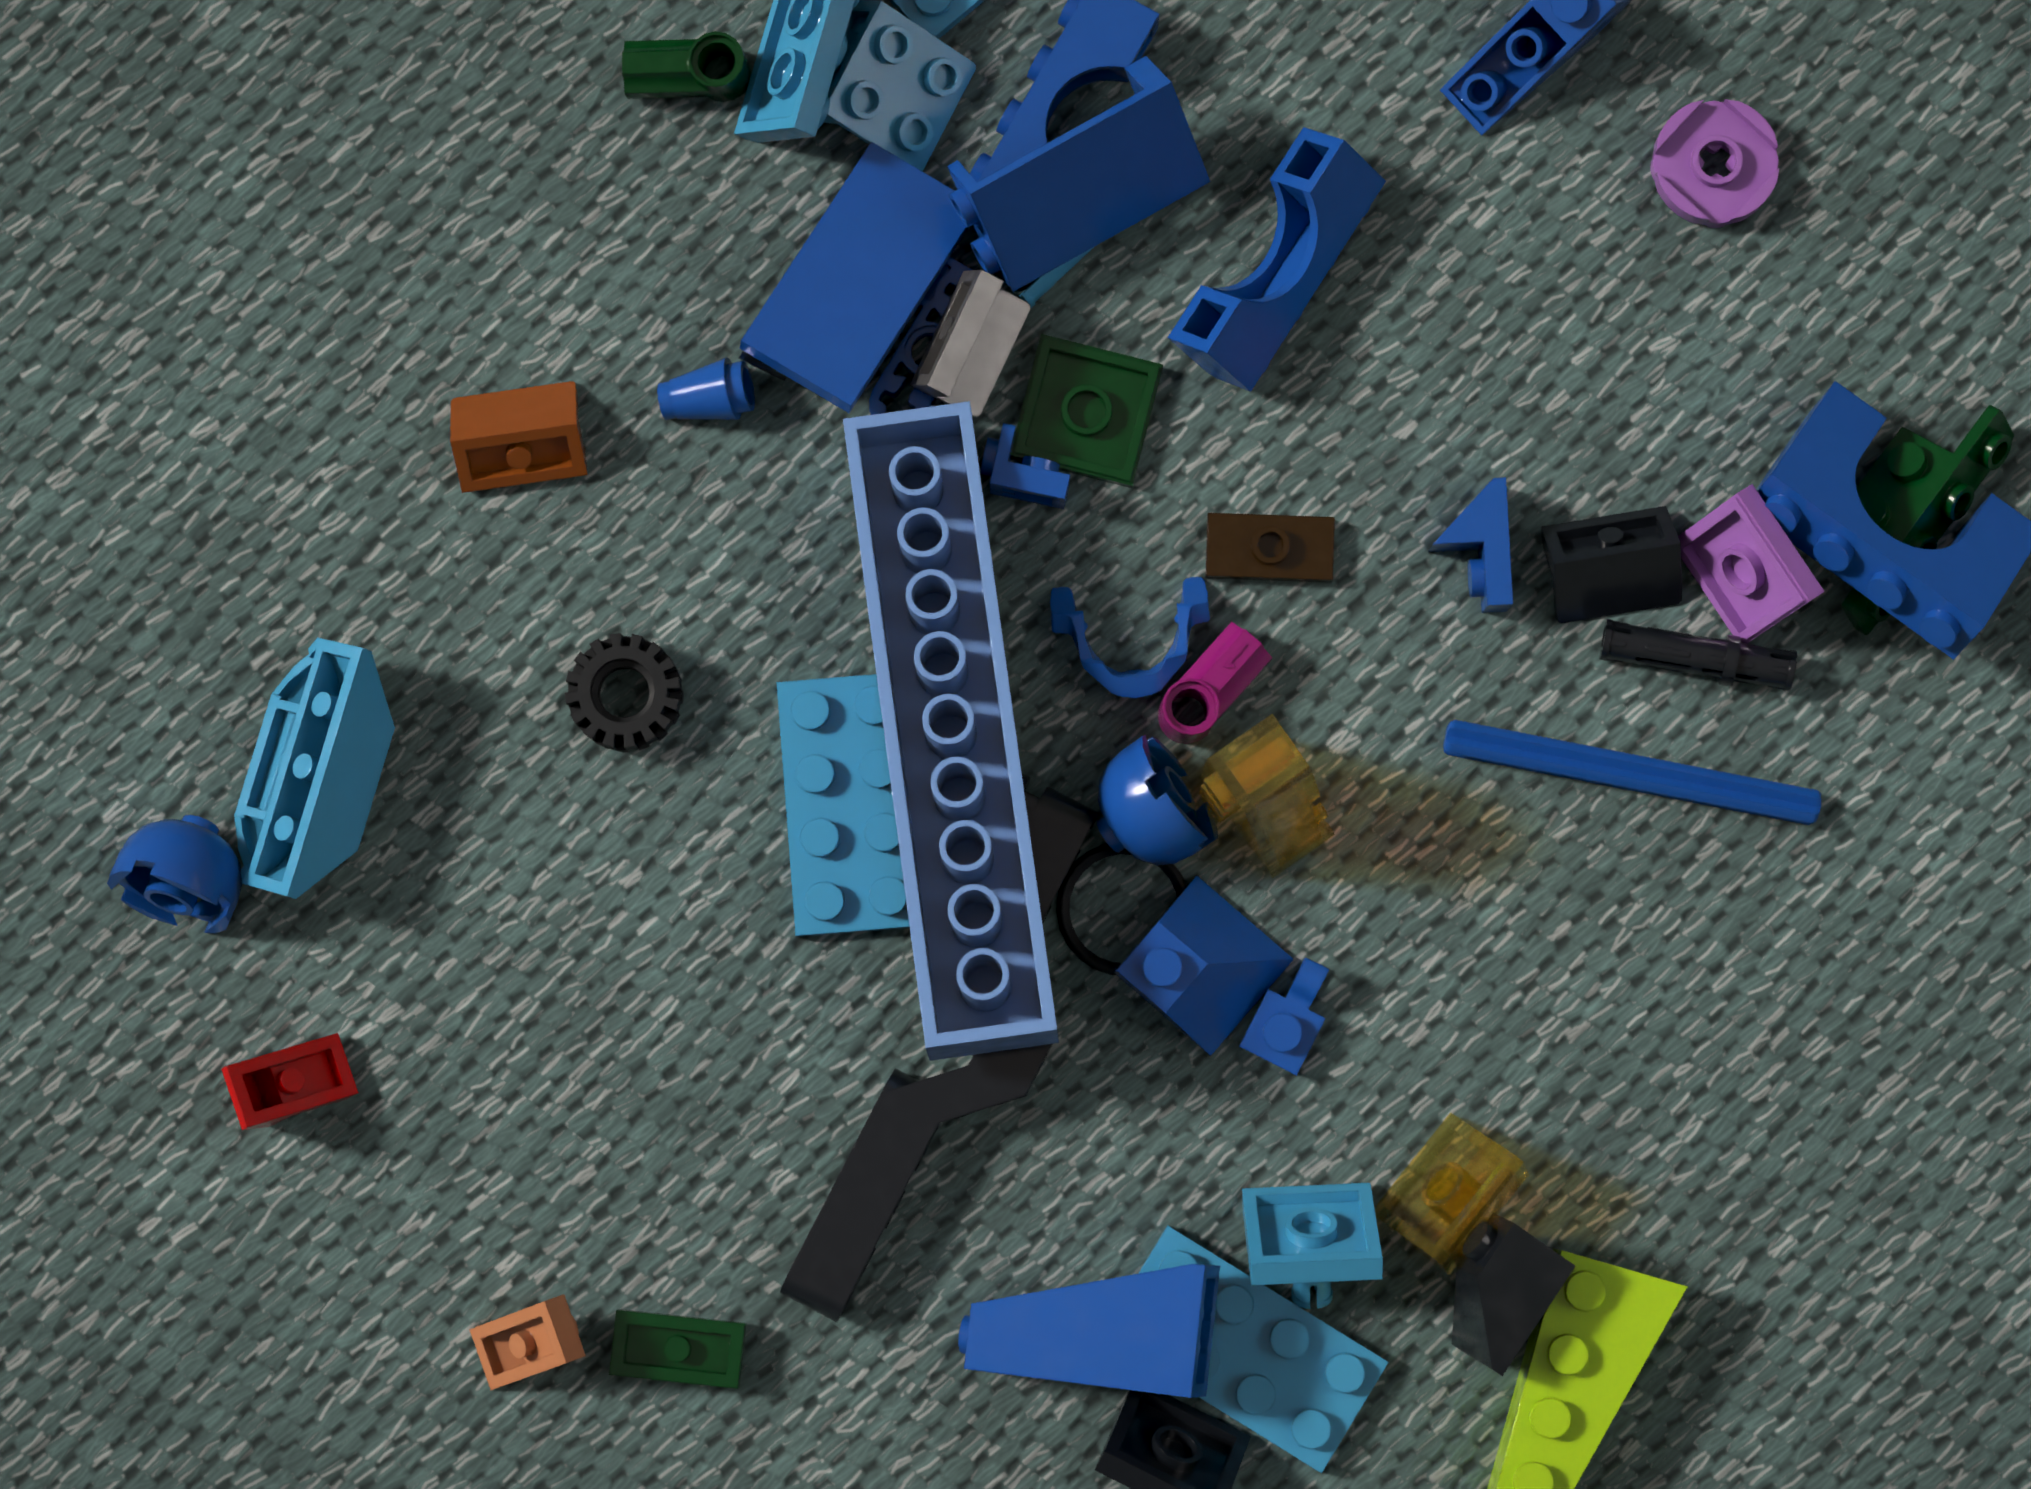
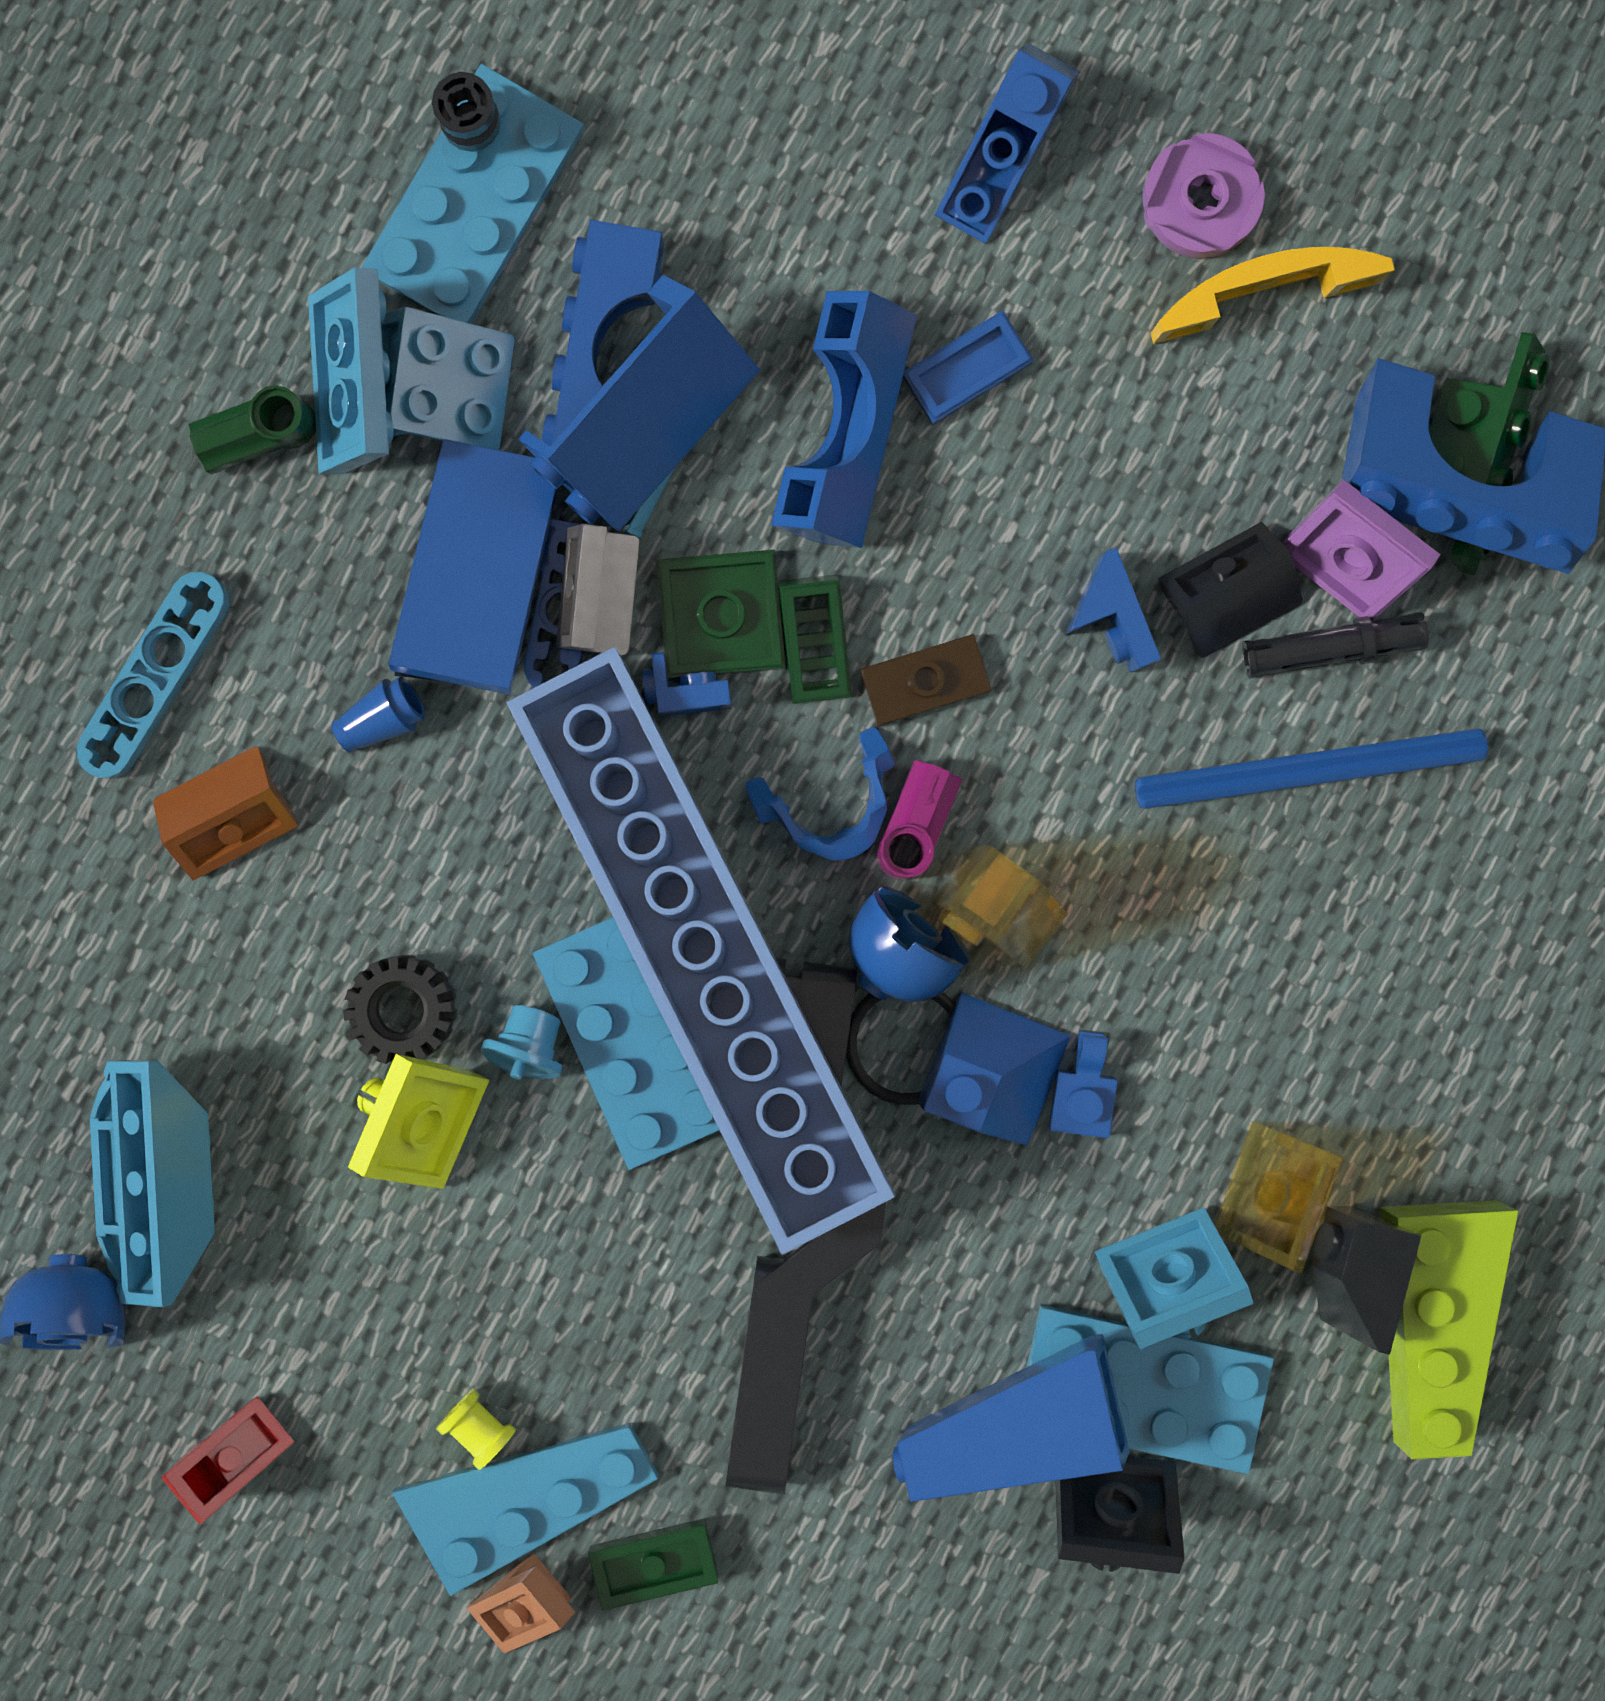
camera: 20 degrees left, 5 degrees up
(491, 268) = (146, 670): none -> dark azure beam
(547, 1144) = (476, 1429): none -> neon yellow bush
(548, 1239) = (496, 1514): none -> dark azure wing
(603, 807) = (416, 1121): none -> neon yellow tile
(737, 772) = (526, 1045): none -> dark azure piece
(1185, 415) = (812, 587): none -> dark green slope
(1420, 251) = (967, 367): none -> blue tile
(1828, 280) = (1337, 269): none -> yellow slope

